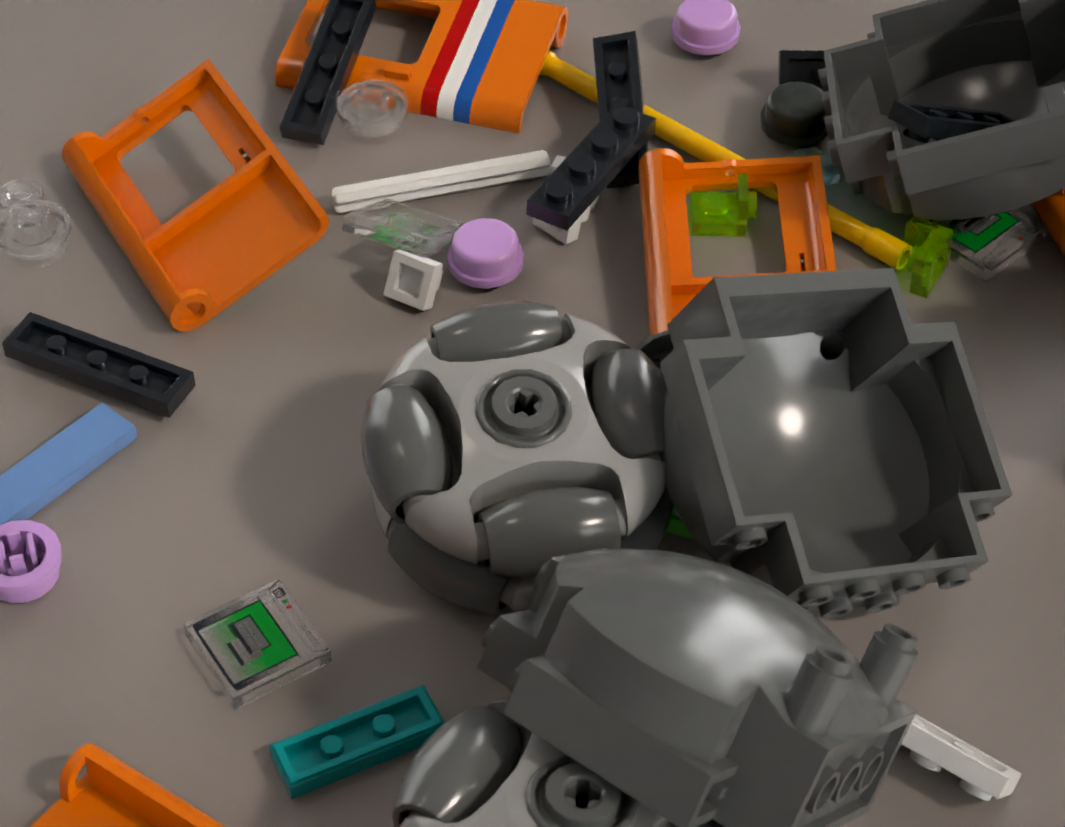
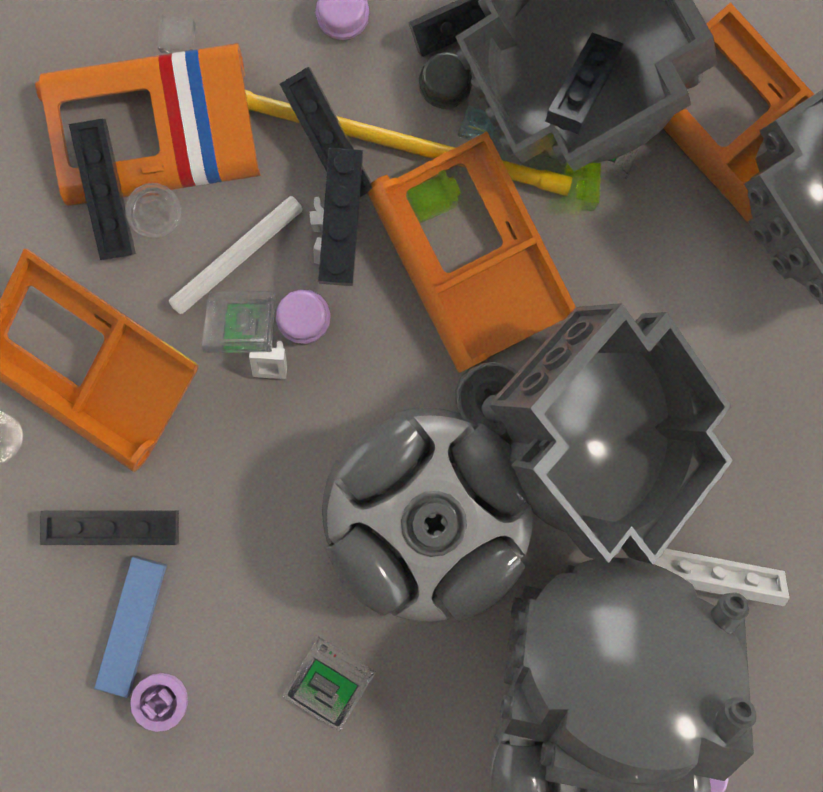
camera: 25 degrees left, 40 degrees up
(355, 741) = (420, 720): teal tile -> none

